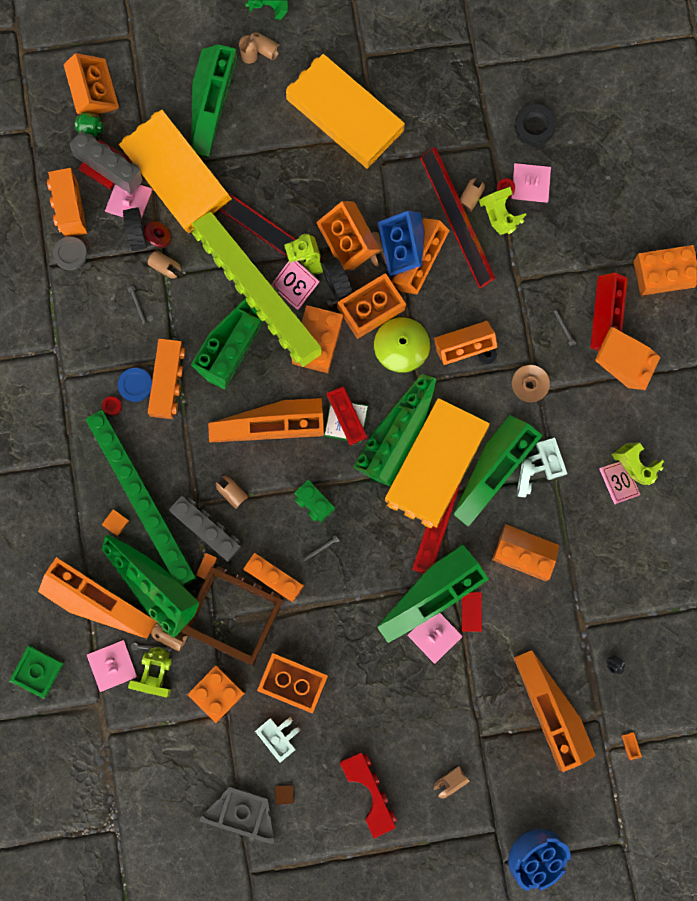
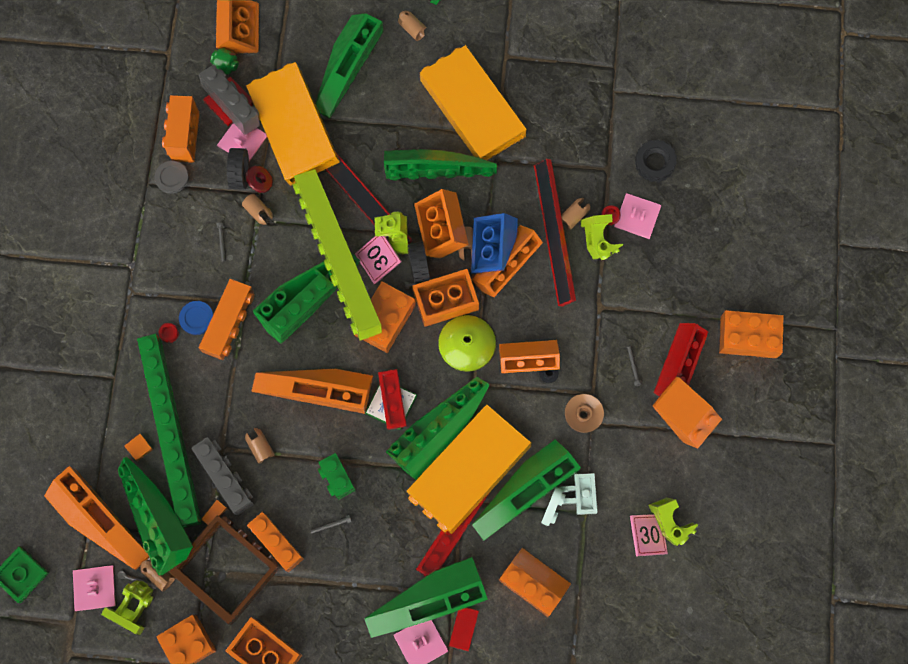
camera: 20 degrees right, 5 degrees down
(248, 49) = (395, 25): medium nougat piece -> none
(324, 178) = (433, 164): none -> green wedge

